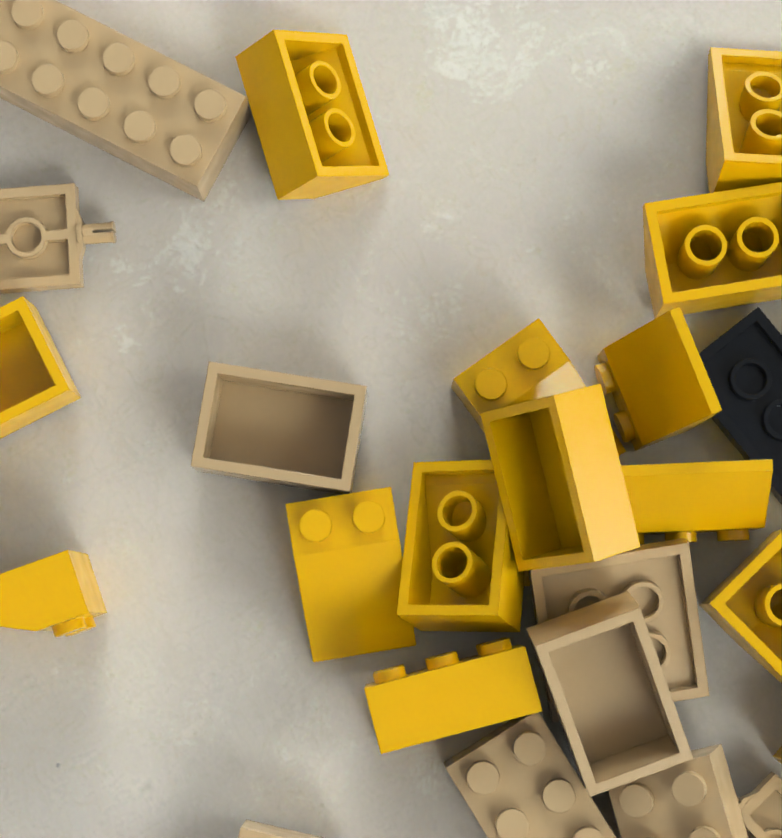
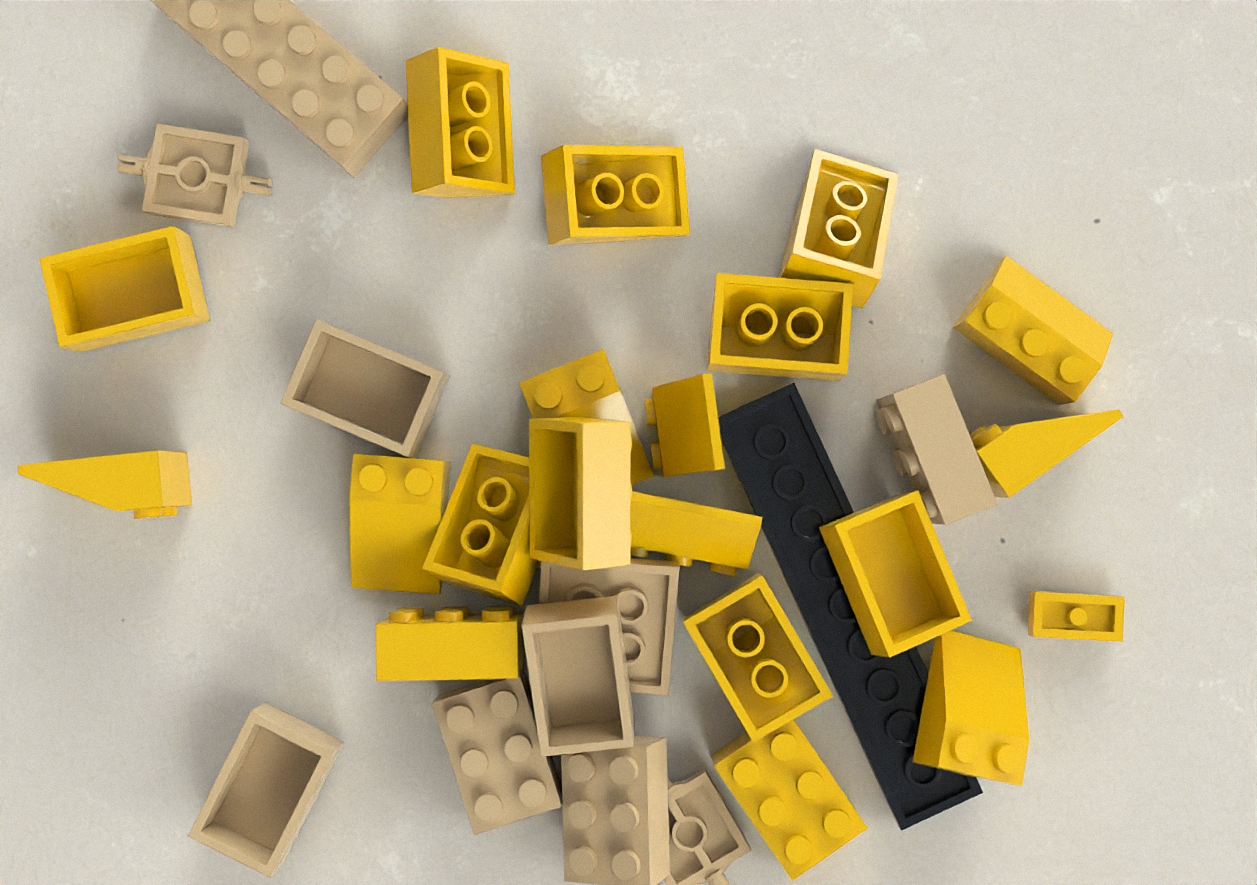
camera: 10 degrees right, 5 degrees up
(501, 147) = (614, 193): none -> yellow slope

